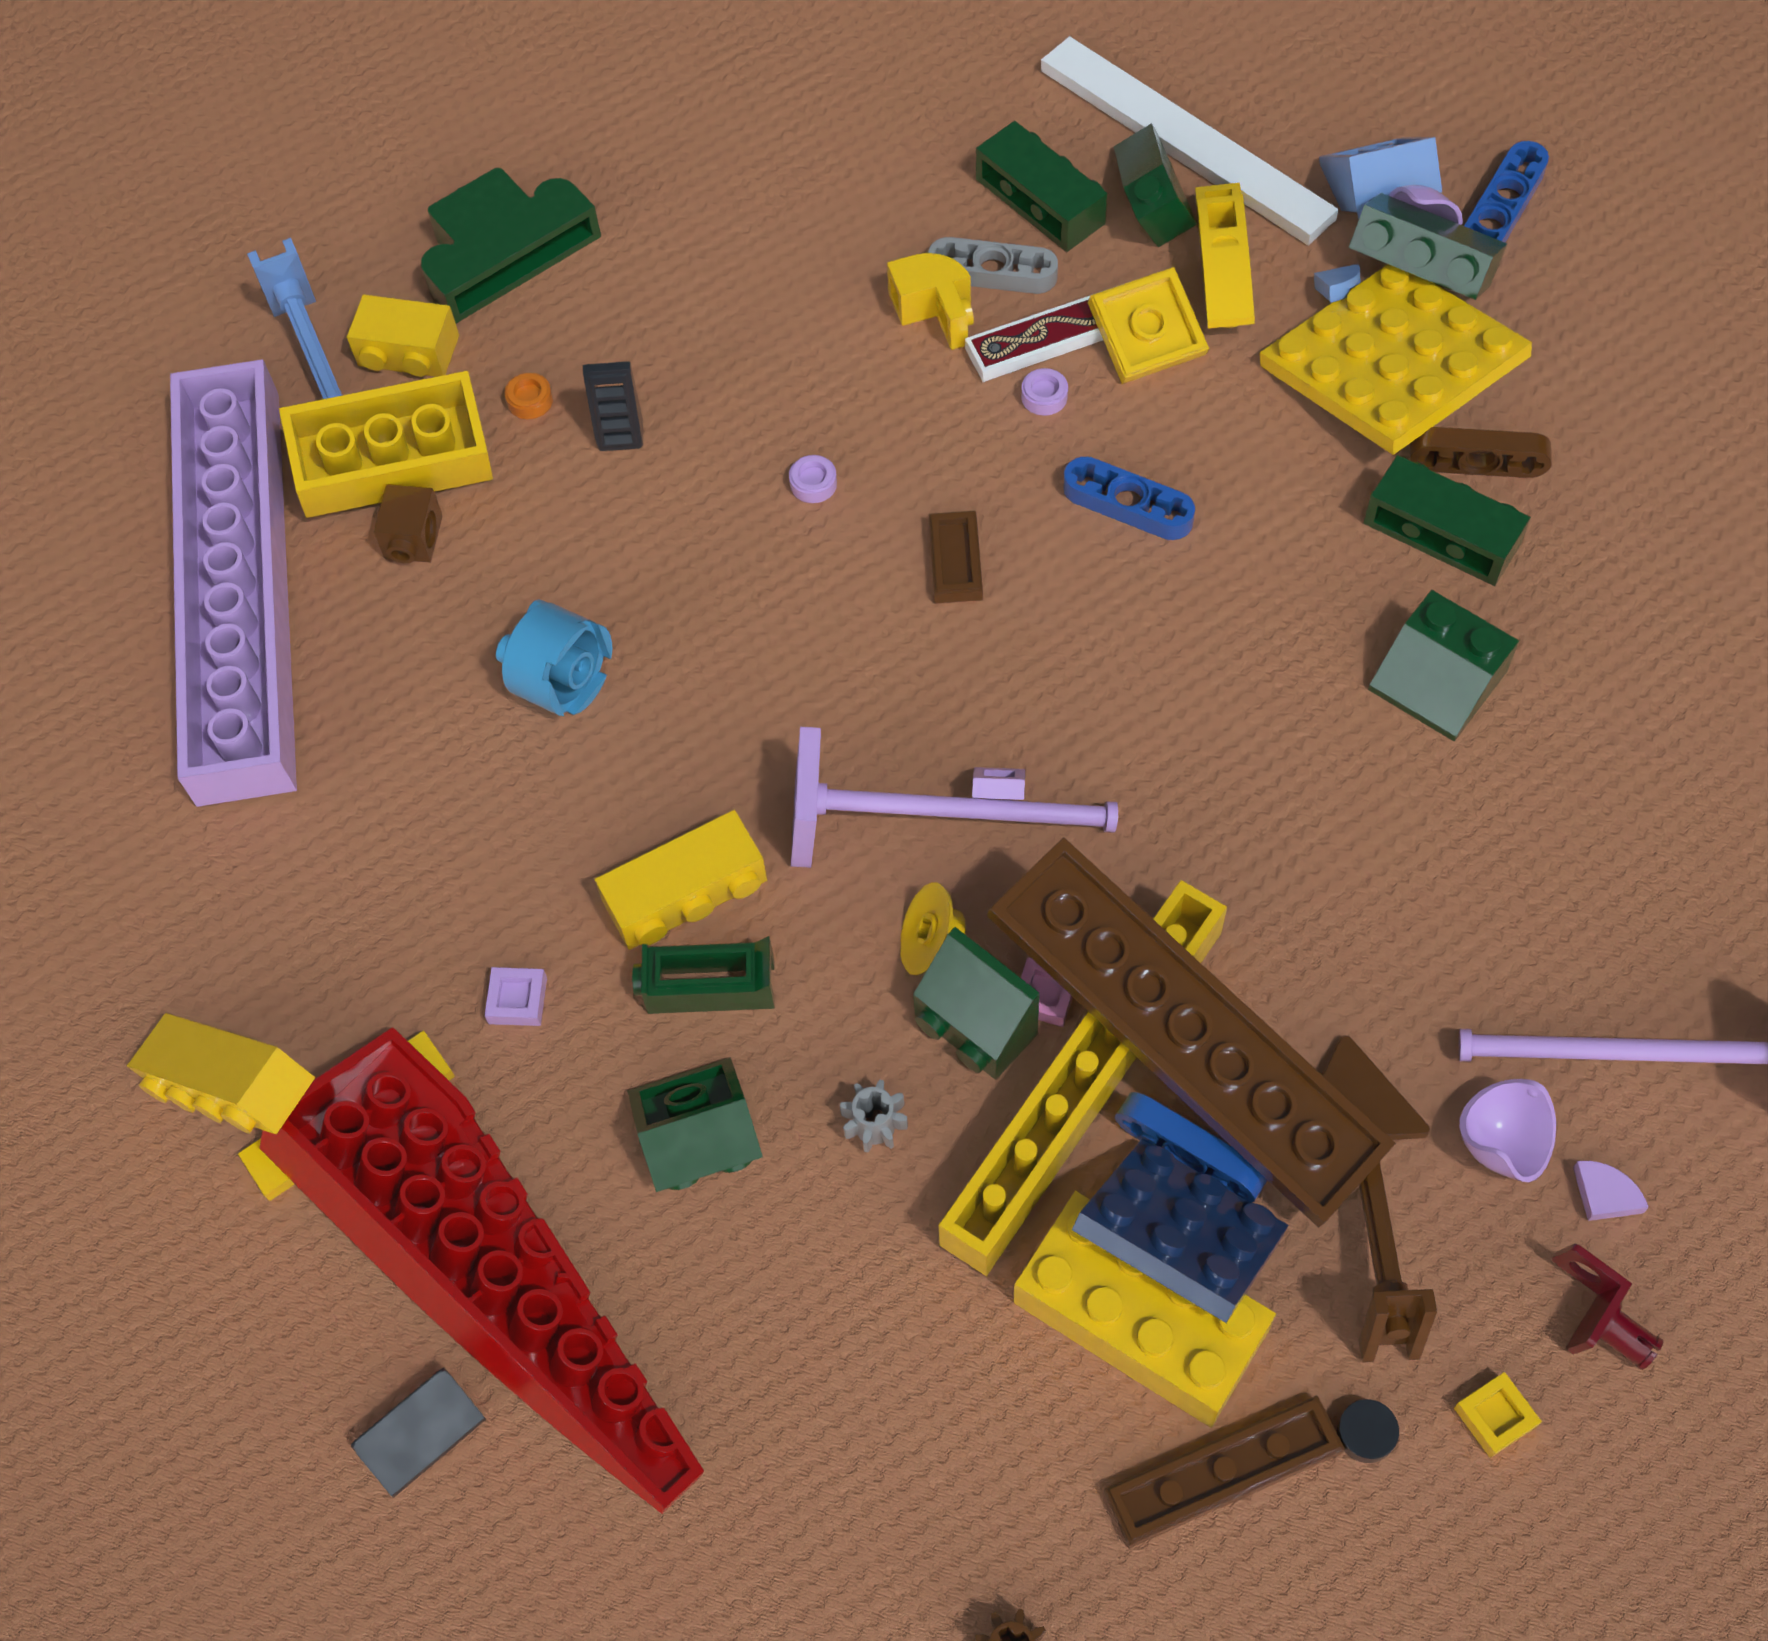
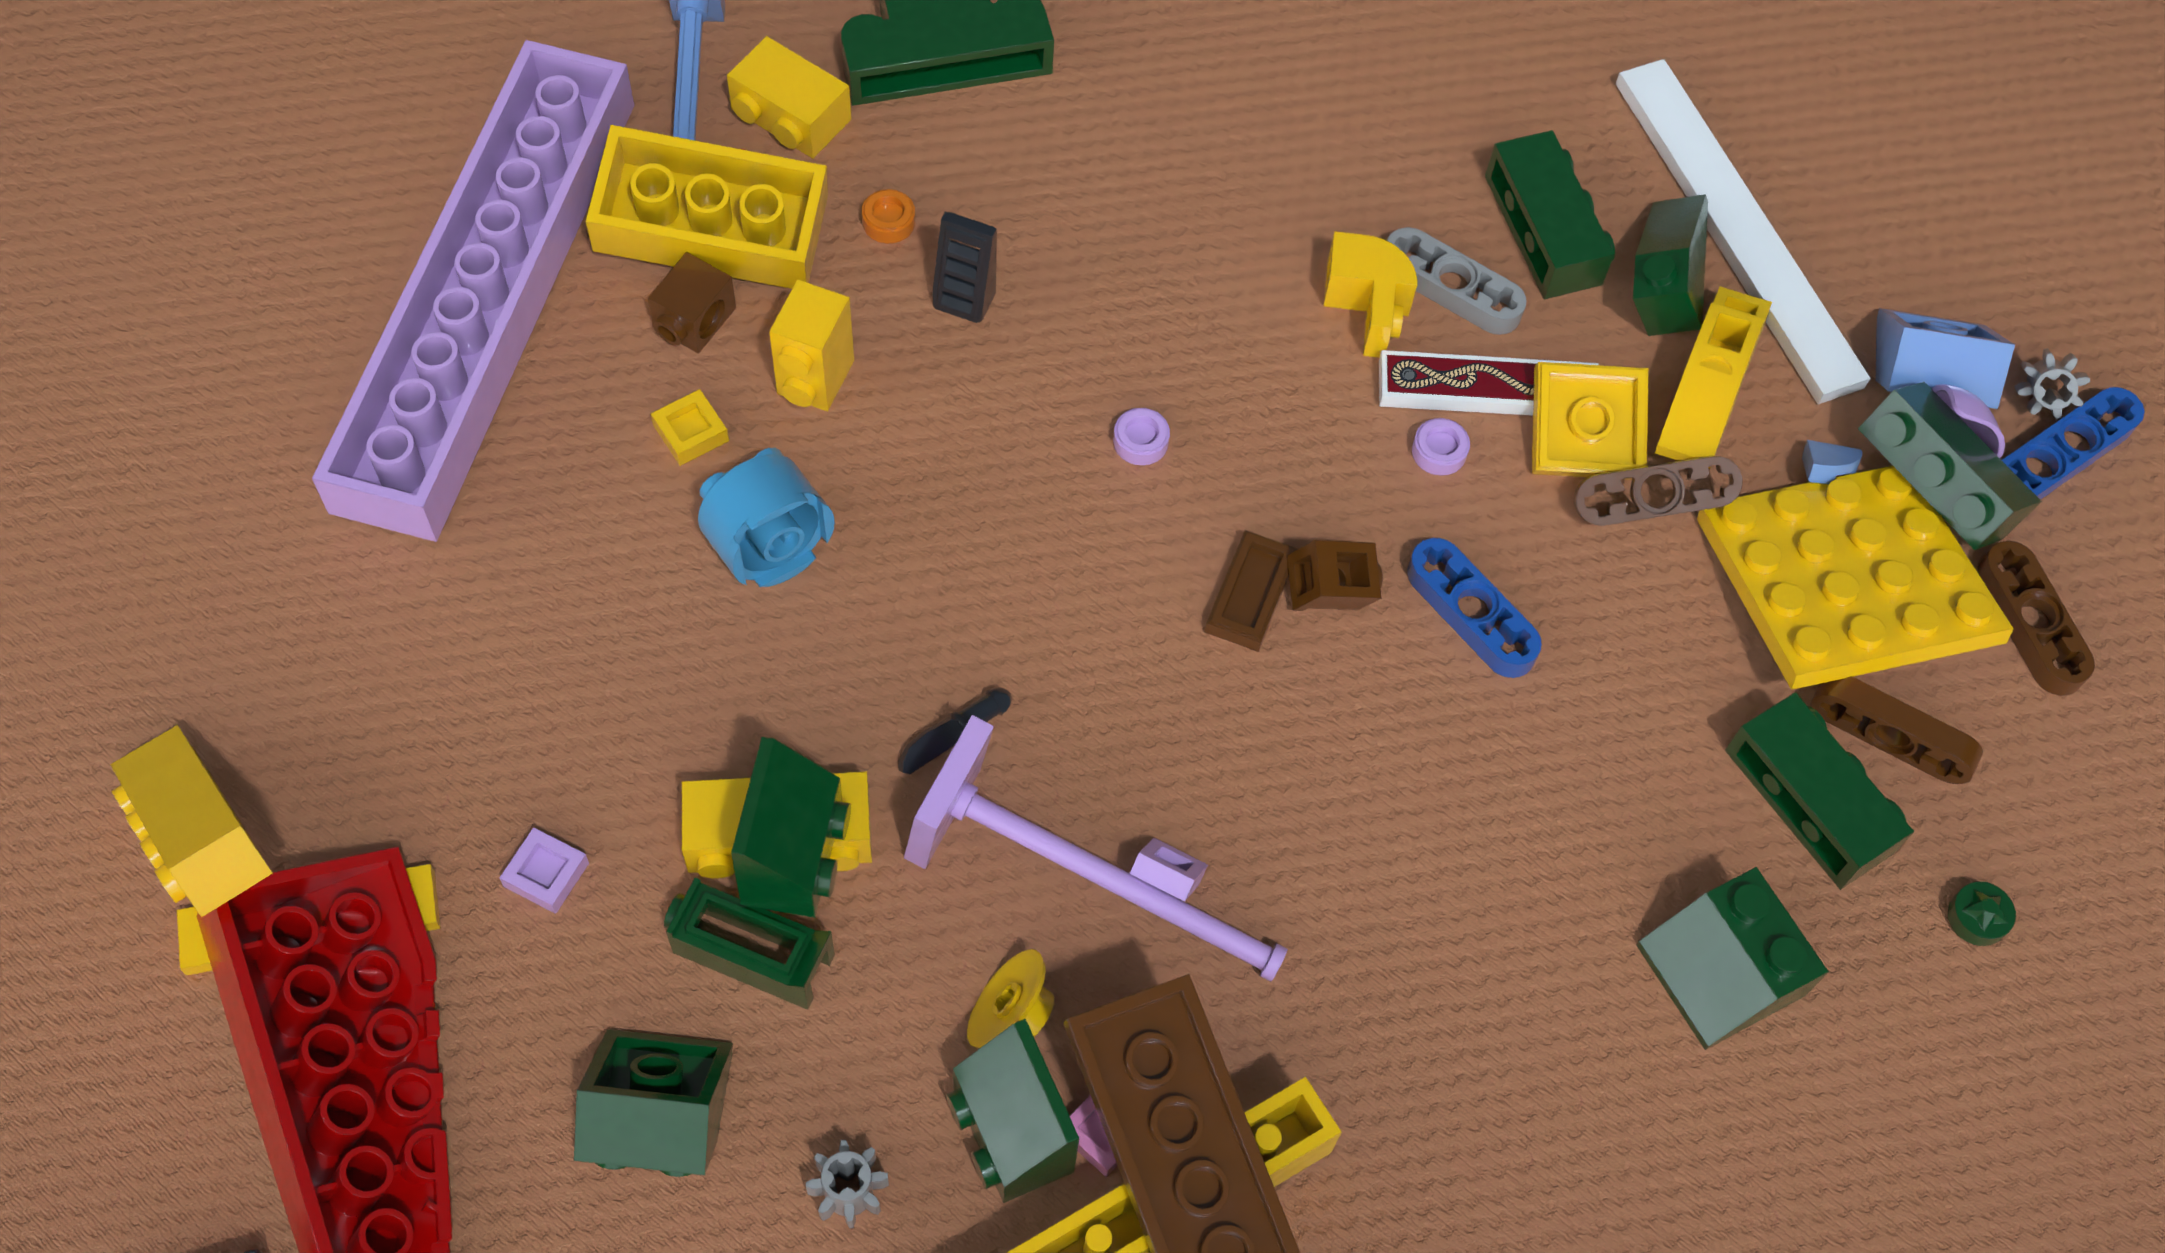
camera: 15 degrees right, 0 degrees up
(454, 619) = (690, 427): none -> yellow tile
(525, 513) = (812, 345): none -> yellow brick
(705, 873) = (788, 832): none -> dark green slope
(779, 756) = (947, 732): none -> black piece
(1014, 517) = (1334, 575): none -> reddish brown brick
(1258, 346) = (1701, 497): none -> reddish brown beam
(1475, 145) = (2053, 369): none -> light grey gear
(1534, 313) = (2037, 591): none -> reddish brown beam
(1603, 558) = (1981, 913): none -> dark green tile

